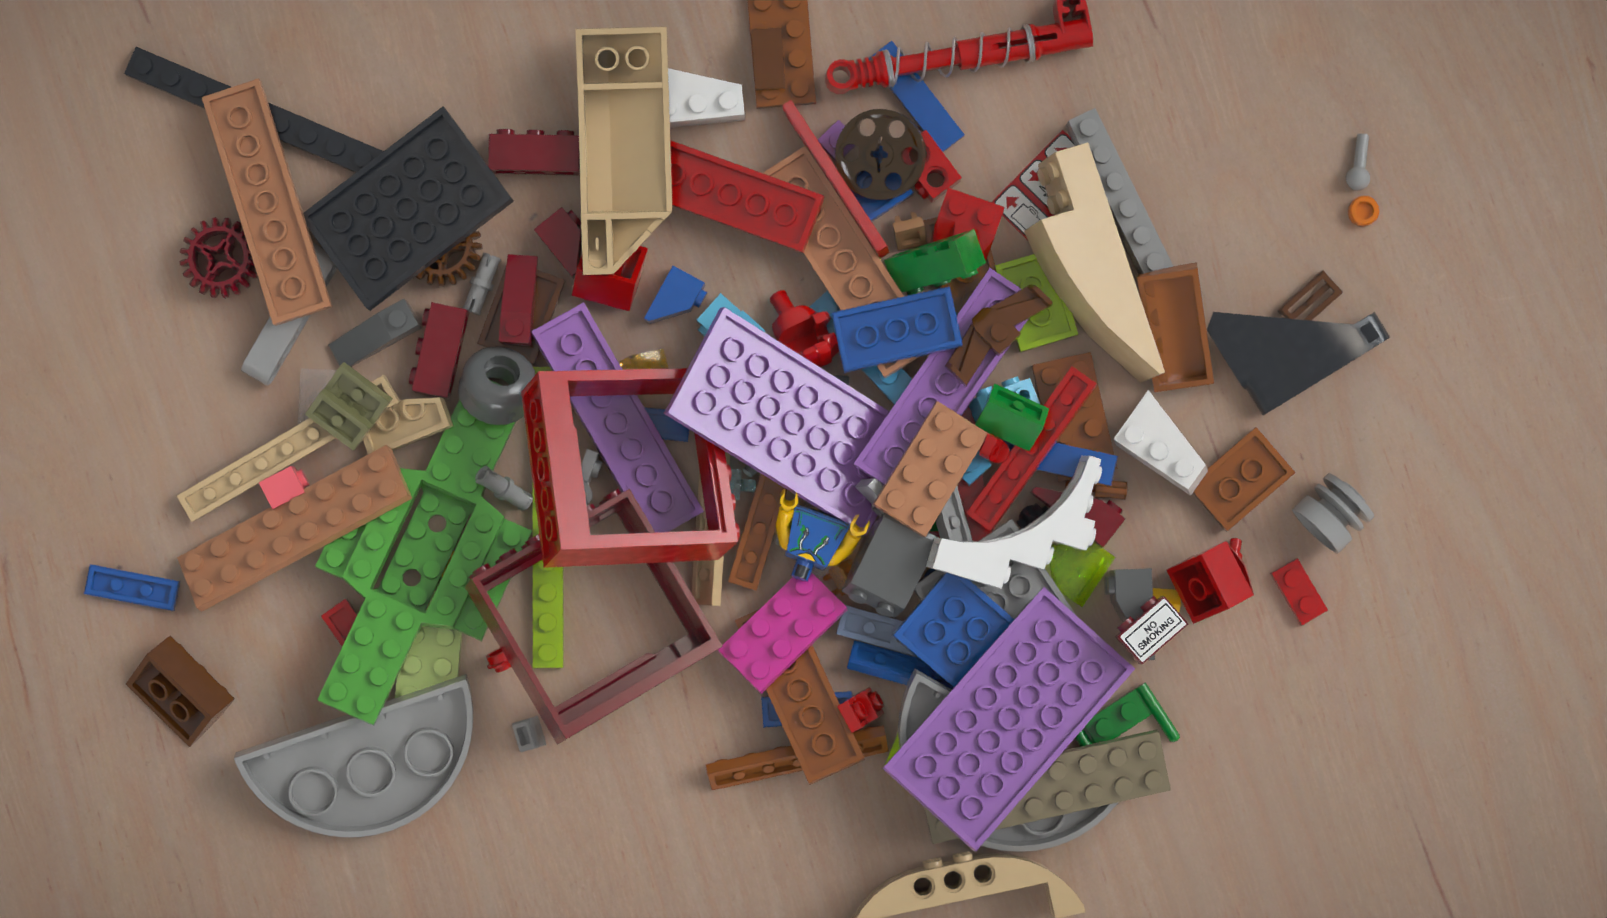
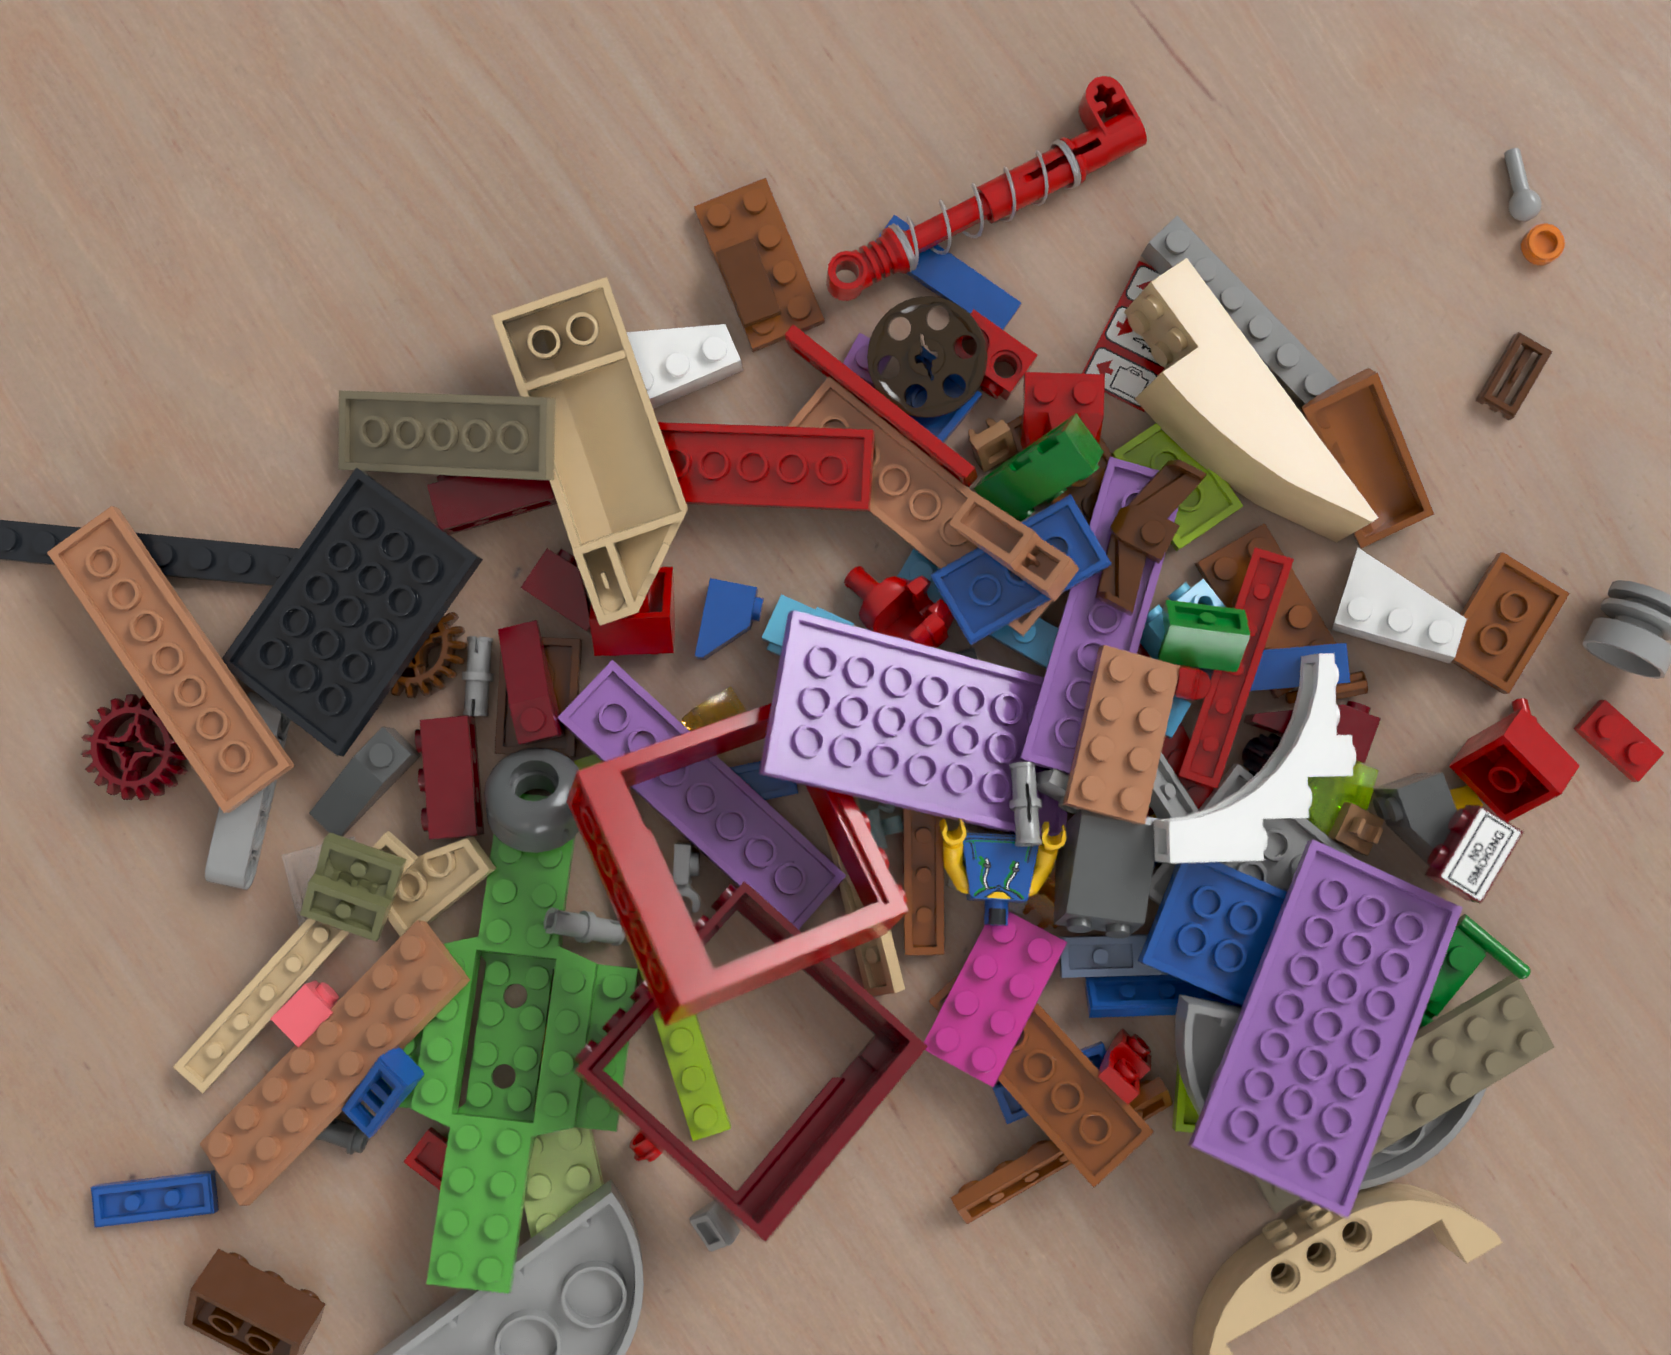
camera: 15 degrees left, 0 degrees up
(285, 585) = (345, 1136): none -> dark grey pin
(341, 548) = (399, 1073): none -> blue slope
(515, 102) = (447, 434): none -> dark tan plate
(842, 515) = (1025, 804): none -> light grey pin
(896, 310) = (1014, 546): none -> nougat slope
(1083, 593) = (1356, 828): none -> medium nougat tile
(1287, 356) = (1514, 451): black panel -> none

